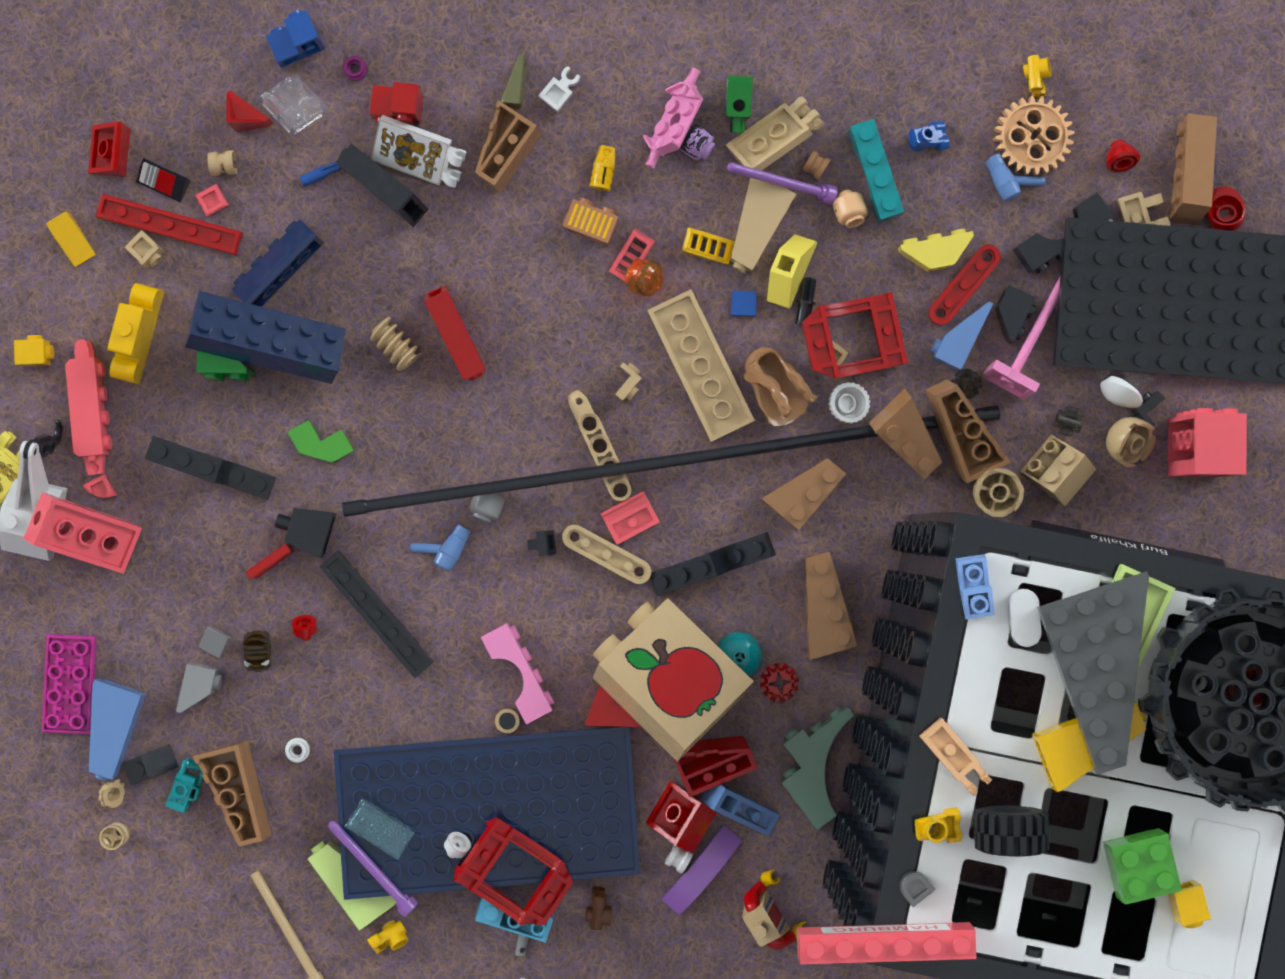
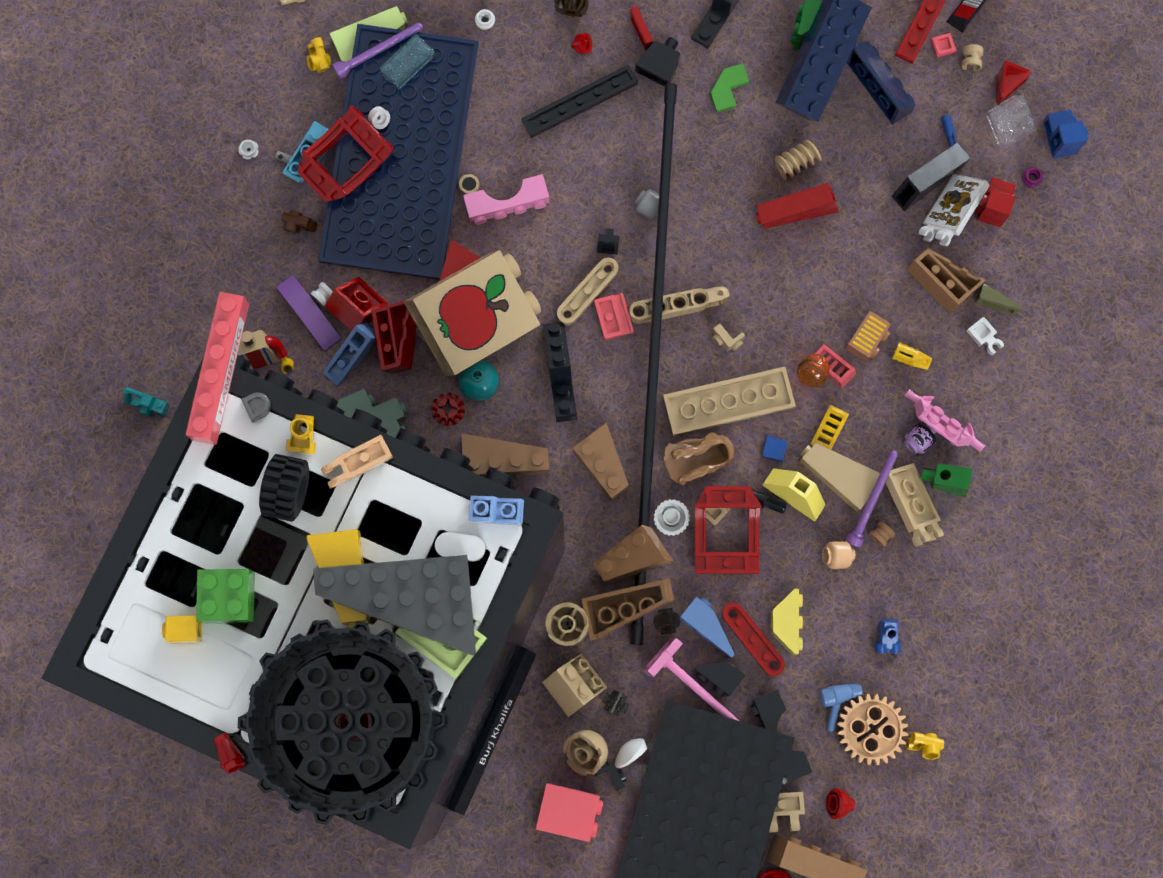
camera: 100 degrees right, 10 degrees down
(449, 552) = (617, 166): medium blue piece -> none
(877, 171) = (867, 583): teal arch -> none

